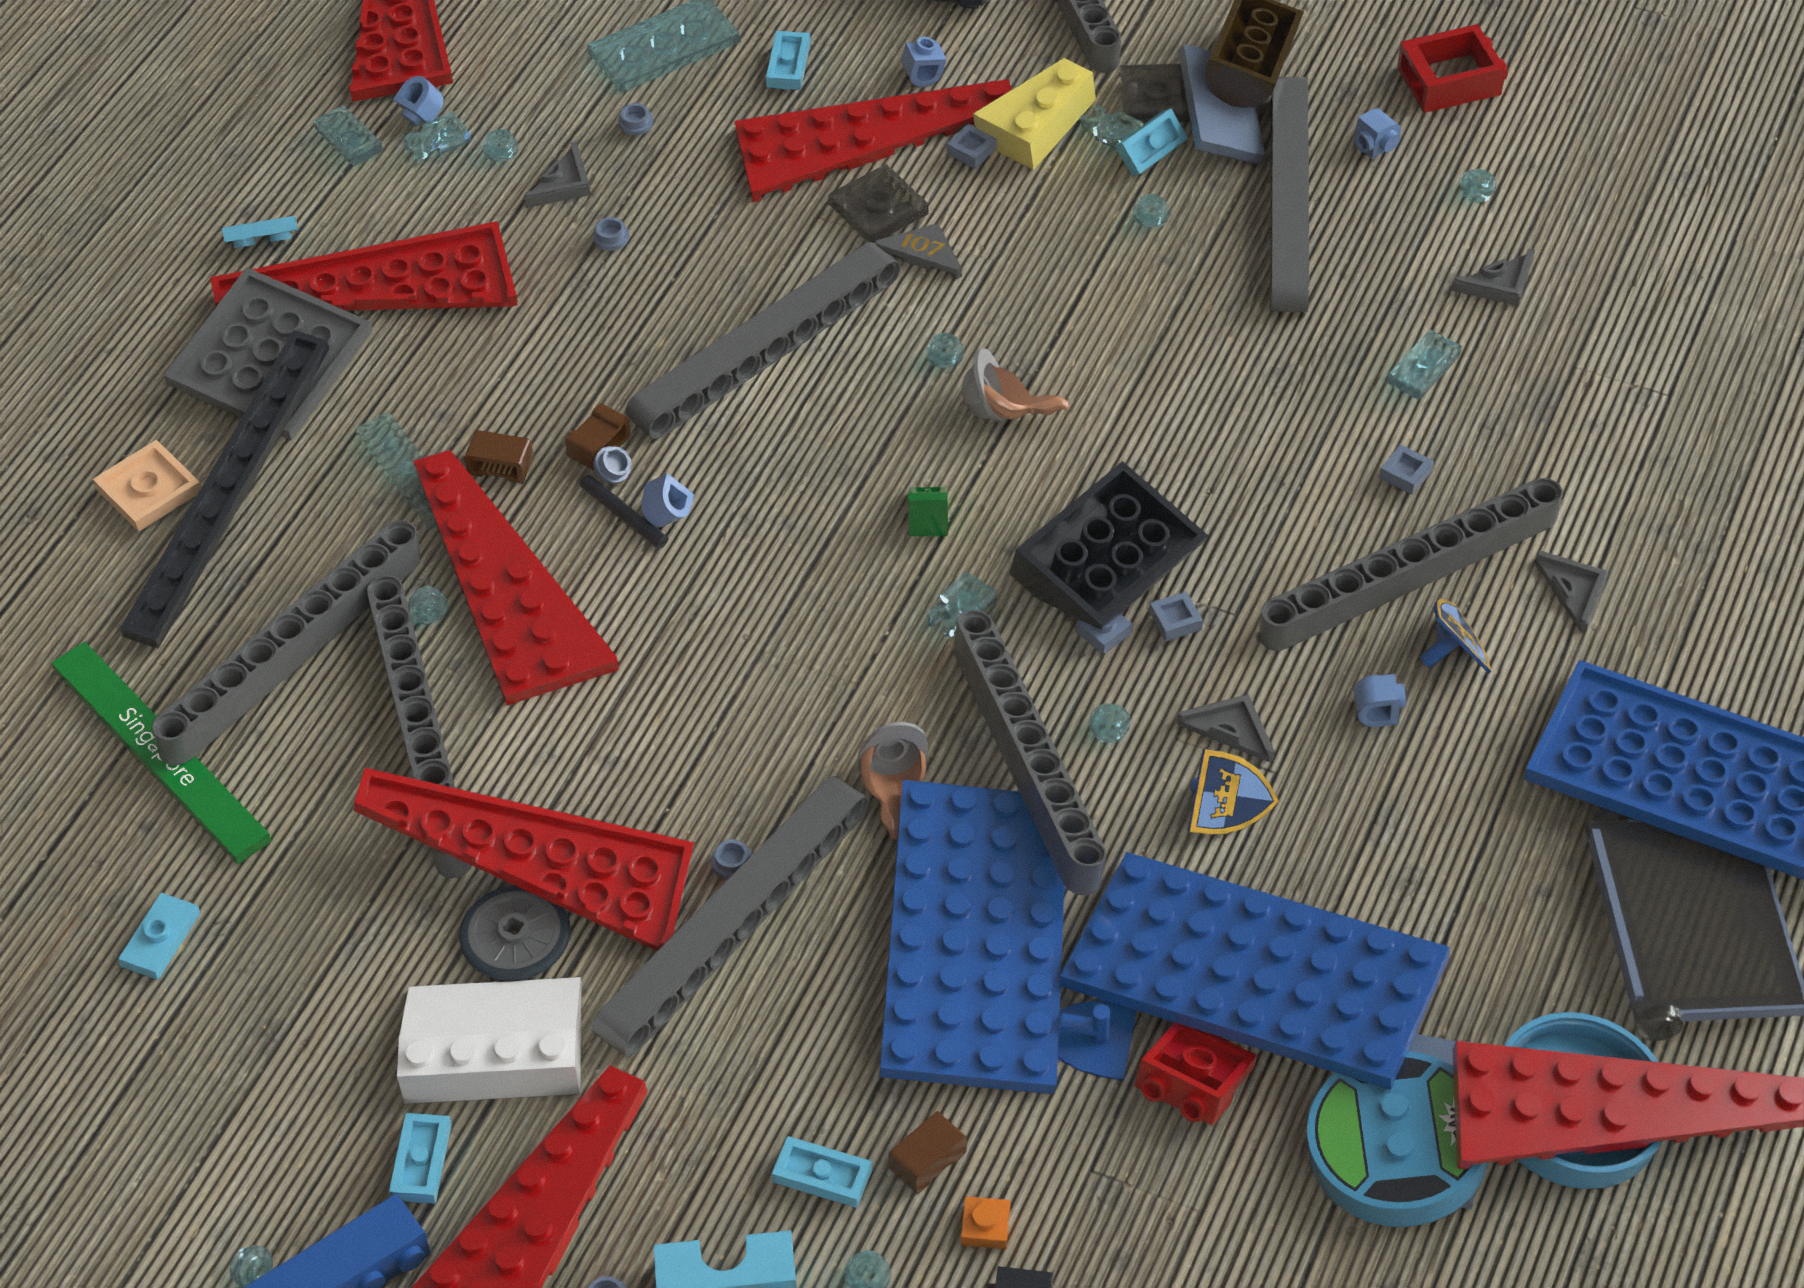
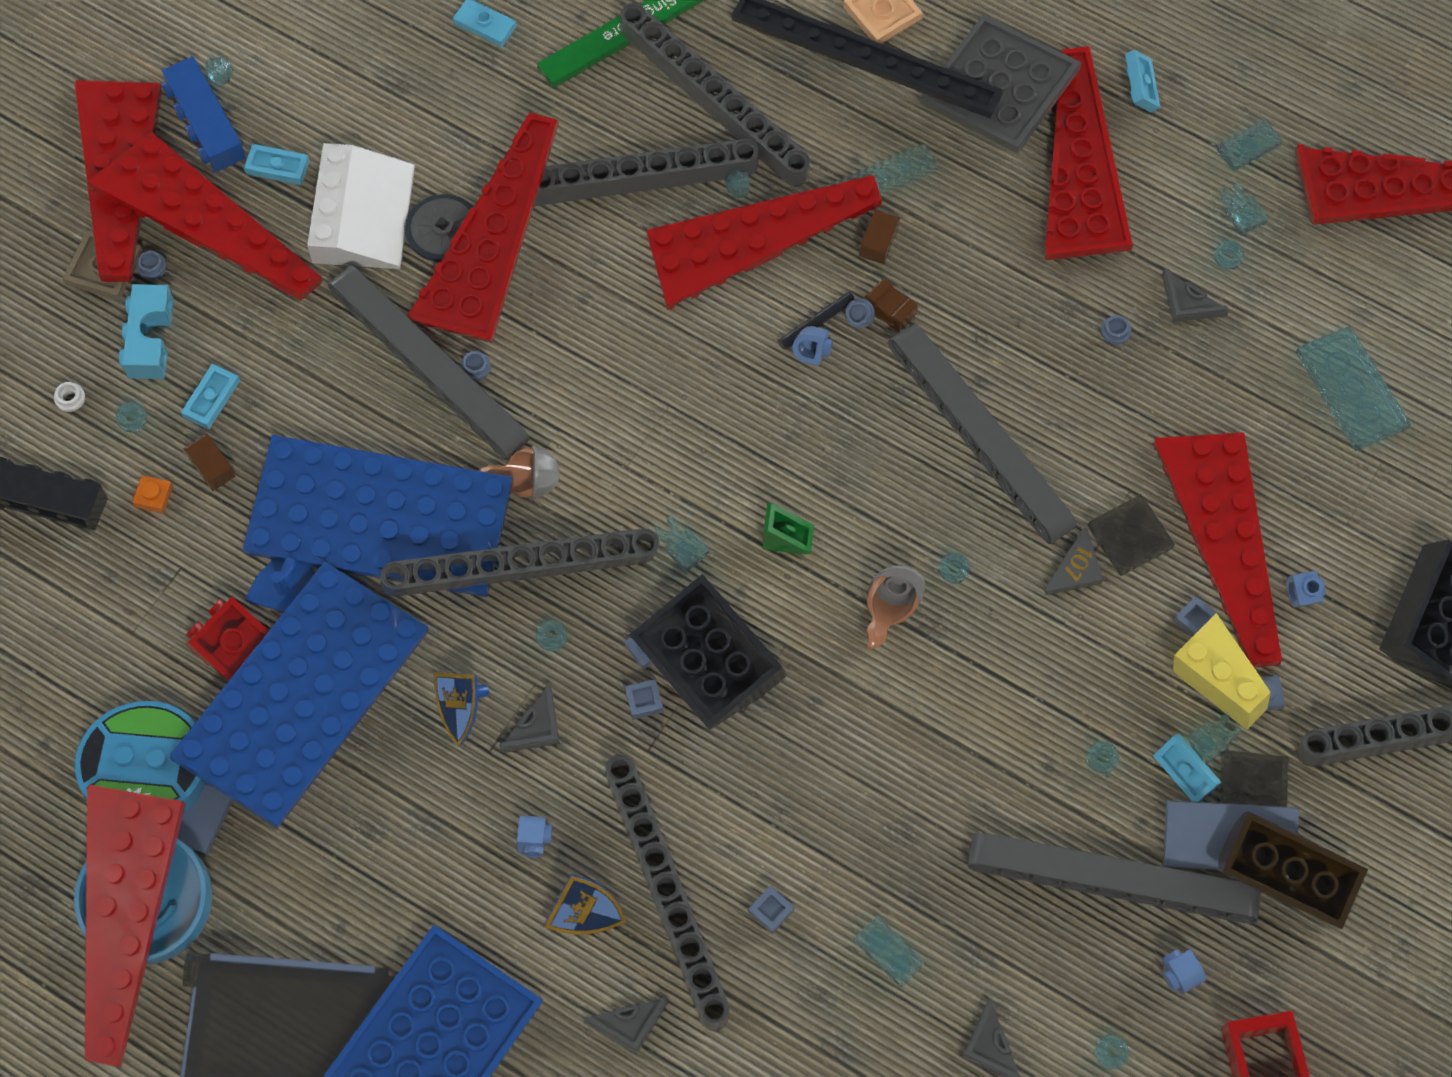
camera: 95 degrees right, 15 degrees up
(419, 100) = (1281, 194): medium blue plate -> none
(635, 119) = (1253, 358): sand blue plate -> none
(788, 60) = (1319, 482): medium azure plate -> none

